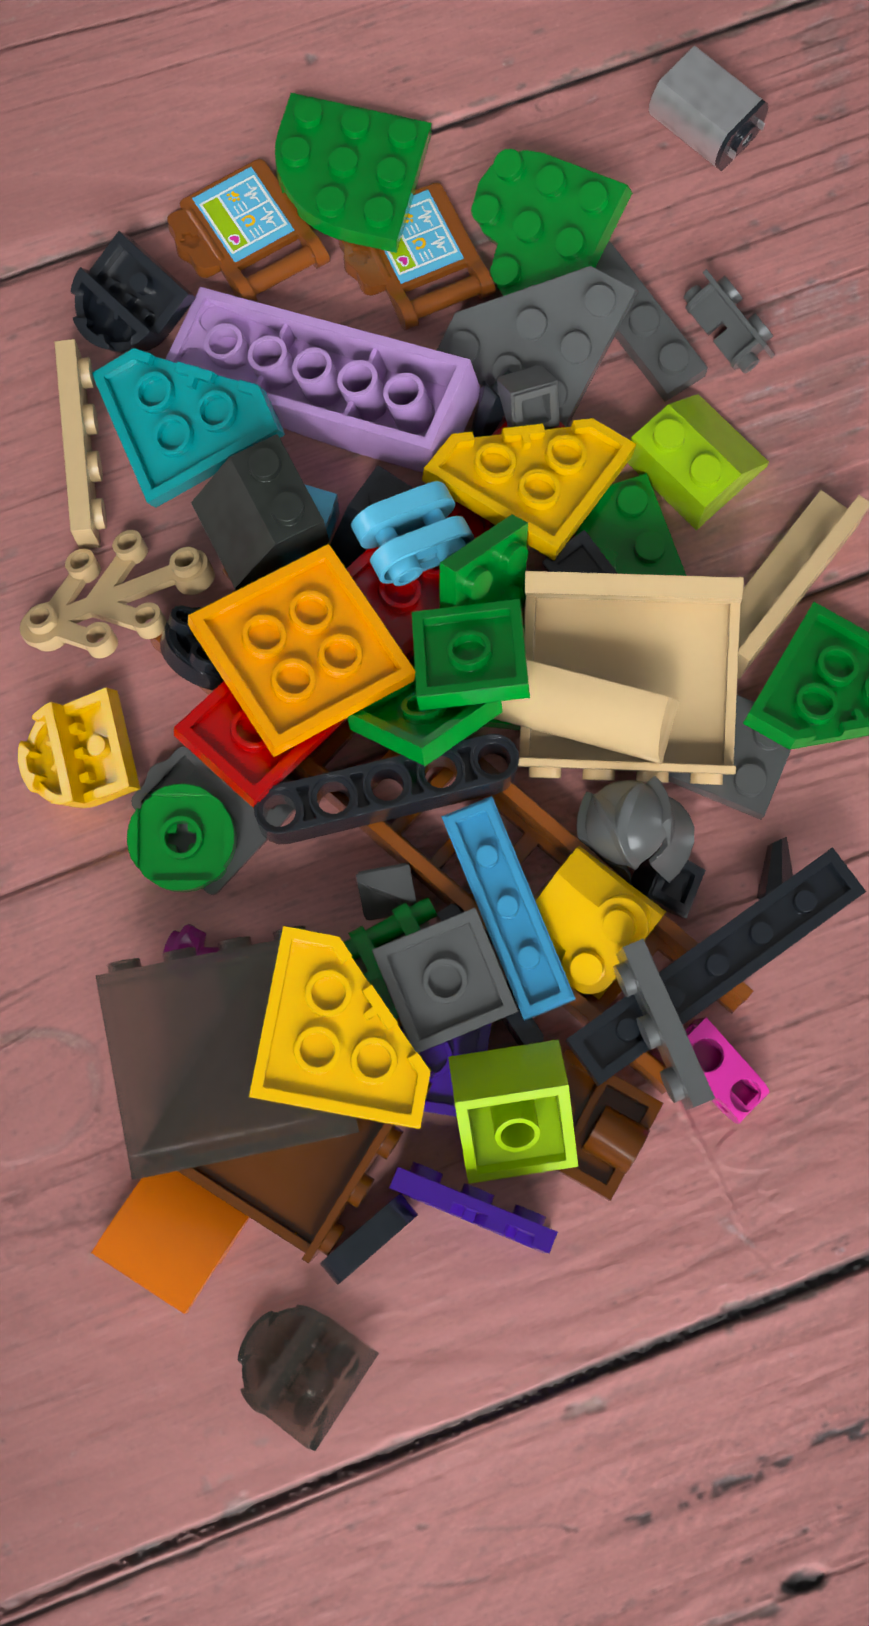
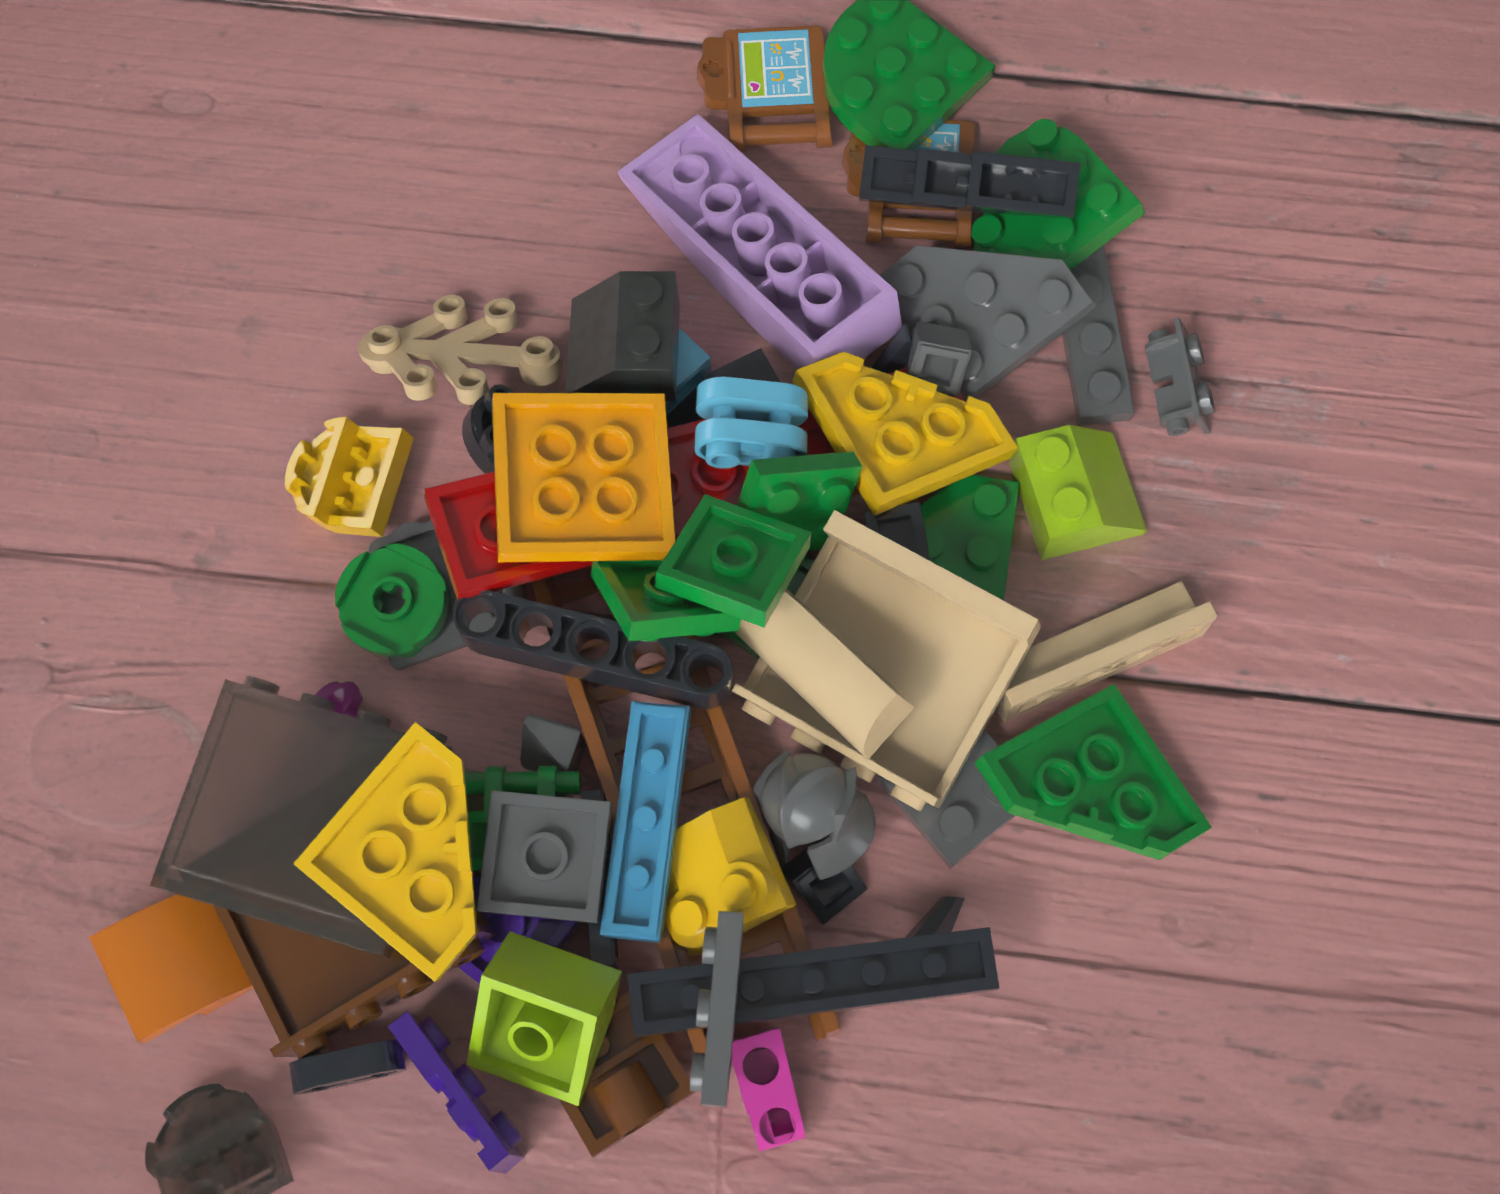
camera: 30 degrees right, 5 degrees down
(81, 463) = (501, 214): tan plate -> none
(127, 299) = (626, 94): black slope -> none
(180, 420) = (608, 222): teal plate -> none
(472, 235) = (970, 181): none -> black slope
(708, 108) = (1267, 171): flat silver piece -> none

